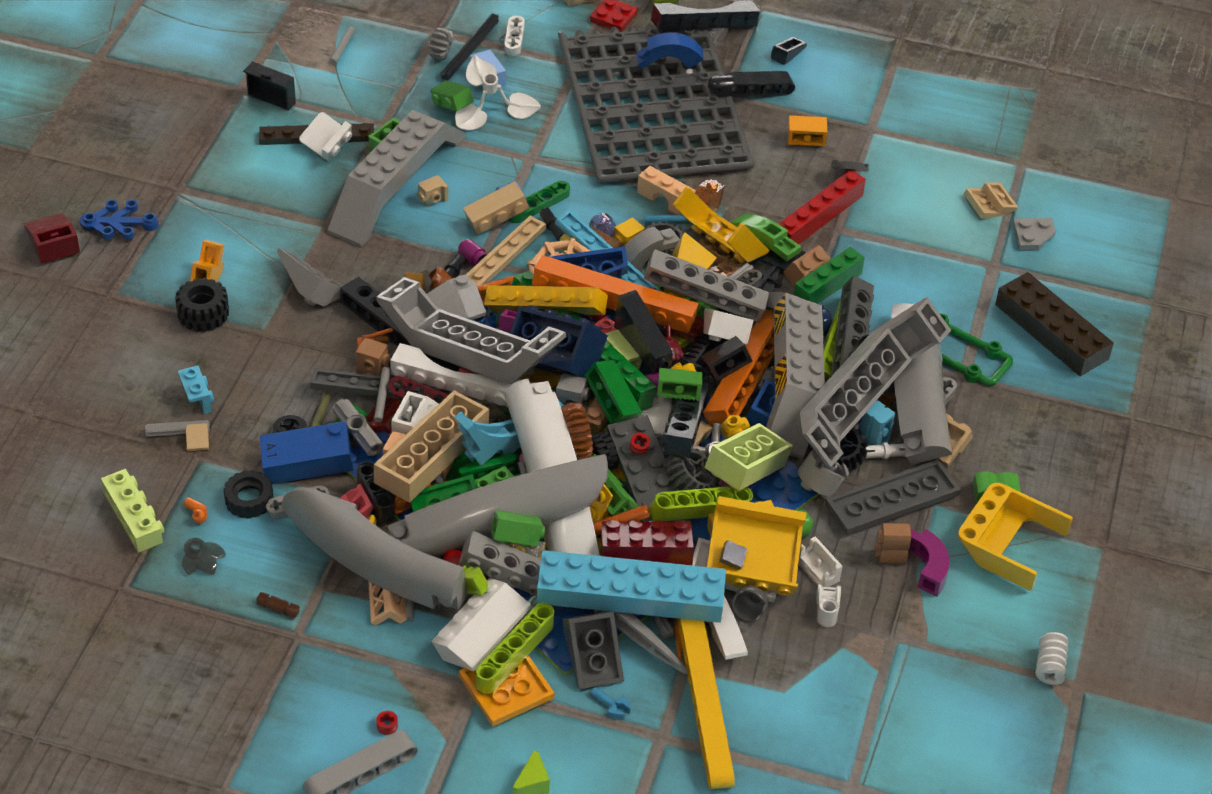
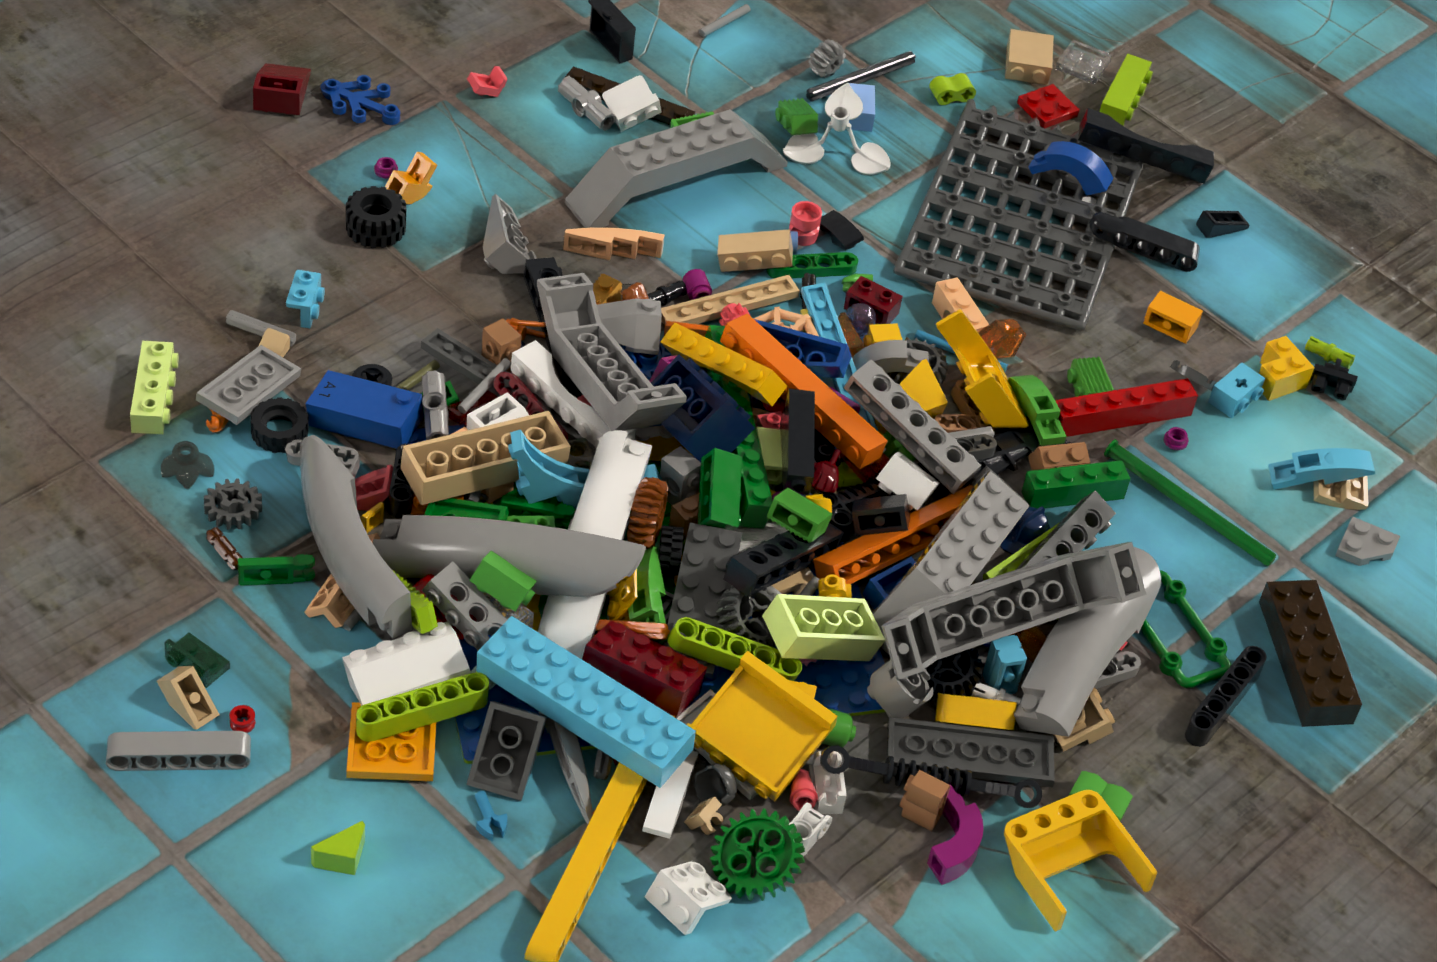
camera: 25 degrees right, 0 degrees up
(178, 264) = (385, 167): none -> magenta plate
(204, 474) = (247, 384): none -> light grey plate
(208, 166) = (488, 84): none -> coral bracket
(260, 569) = (233, 504): none -> dark grey gear
(290, 150) = (586, 103): none -> light grey piece
(320, 696) = (193, 652): none -> clear green bracket
(329, 602) = (275, 570): none -> green hinge
(337, 725) = (188, 696): none -> tan slope
(393, 244) = (616, 241): none -> light nougat slope
(432, 191) = (703, 205): tan brick -> none
(511, 30) = (904, 96): white beam -> none
(514, 169) = (806, 220): none -> coral wheel
(515, 264) = (732, 312): none -> coral gear
(541, 29) = (952, 88): none -> lime axle
(543, 167) = (841, 230): none -> black slope
(576, 198) = (851, 279): none -> bright green arm
(594, 204) = (883, 300): none -> dark red brick
(644, 439) = (716, 560): red bush -> none
(733, 555) = (727, 723): tile -> none
(755, 627) = (703, 814): none -> tan tile
(784, 199) = (1088, 376): none -> bright green brick
(784, 689) = (685, 894): none -> white bracket
(807, 579) = (802, 790): none -> coral cone
(832, 629) = (782, 855): none -> green gear
(867, 216) = (1176, 438): none -> magenta plate
(868, 529) = (965, 782): none -> black piece
(878, 466) = (975, 711): none -> yellow beam
(882, 164) = (1237, 390): none -> medium azure brick
(902, 134) = (1284, 368): none -> yellow brick
(908, 257) = (1190, 503): none -> green axle
(921, 111) = (1329, 352): none -> lime pin
(935, 126) = (1333, 376): none -> black hips
(975, 191) = (1319, 464): none -> medium azure slope
(1023, 379) = (1225, 696): none -> black beam

